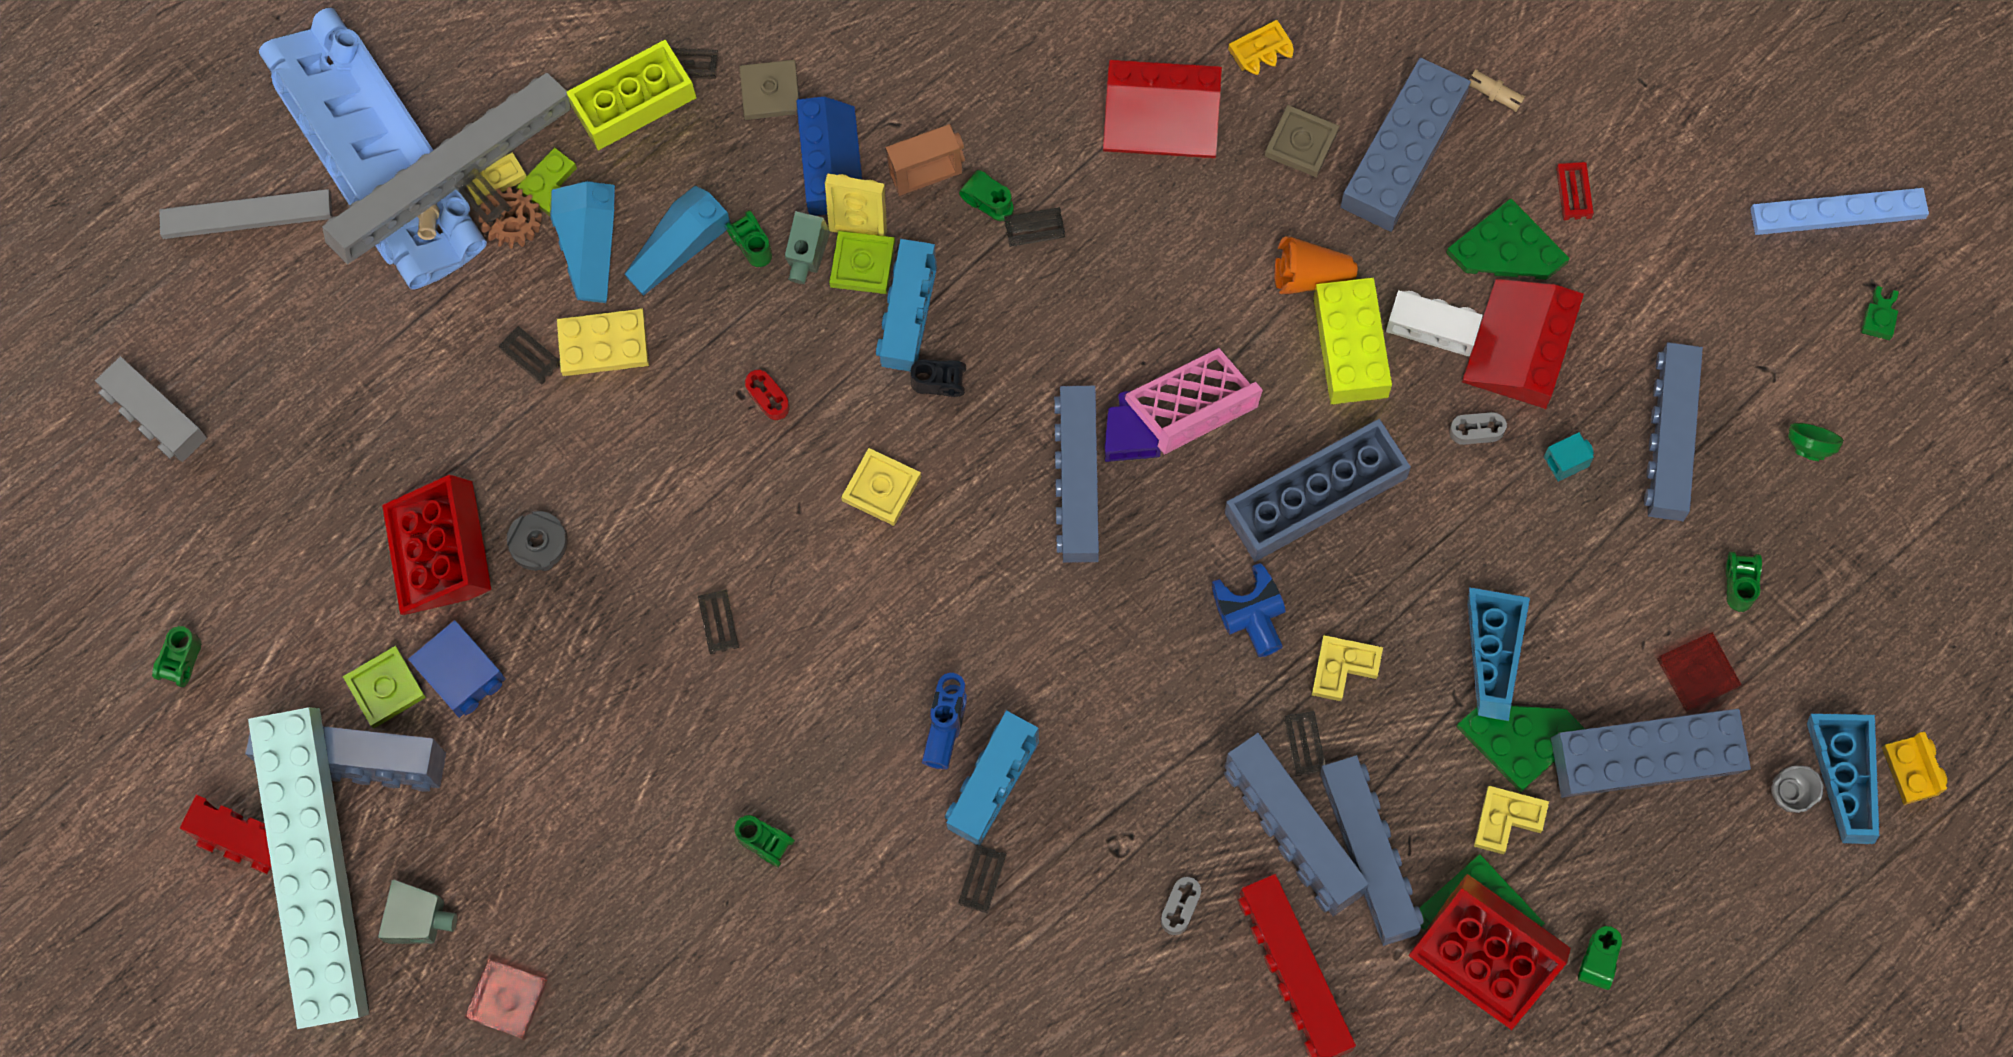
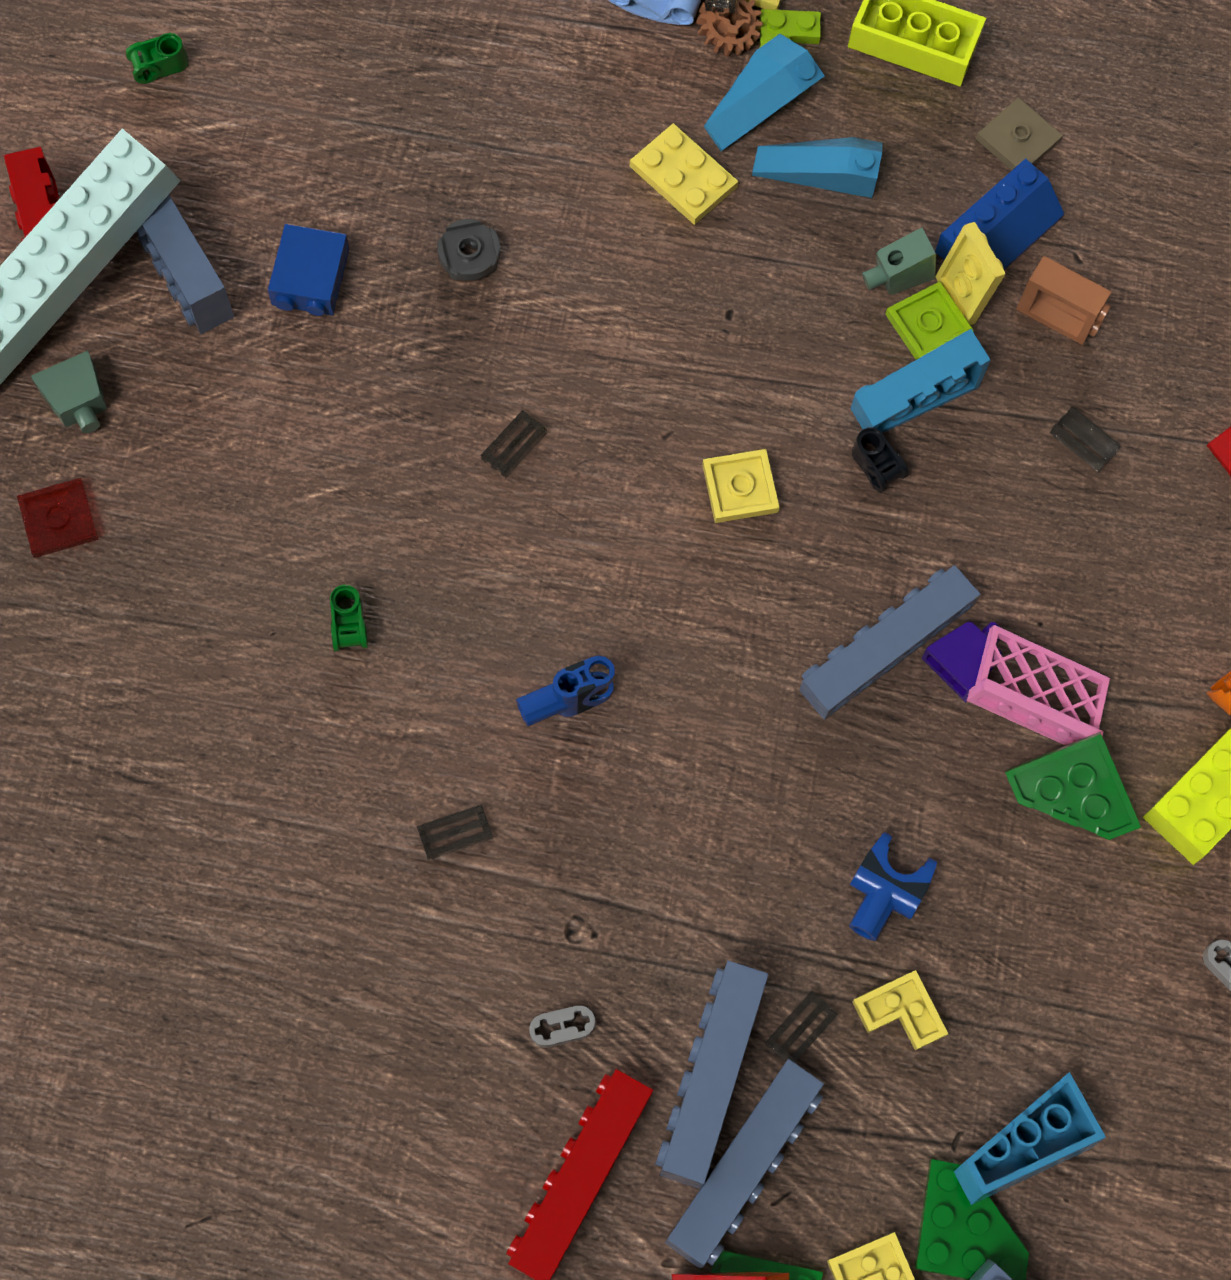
camera: 45 degrees right, 0 degrees up
(384, 687) = (250, 227): lime plate -> none
(436, 545) = (403, 177): red slope -> none
(547, 370) = (624, 149): clear smoke tile -> none
(701, 73) = (1009, 70): clear smoke tile -> none
(747, 236) = (872, 216): green piece -> none
(762, 399) = (739, 333): red beam -> none
(987, 196) = (1078, 379): green piece -> none
(993, 778) = (550, 772): dark azure wedge -> none
(1279, 430) = (1077, 788): none -> green plate
(1317, 490) = (1049, 863): sand blue brick -> none

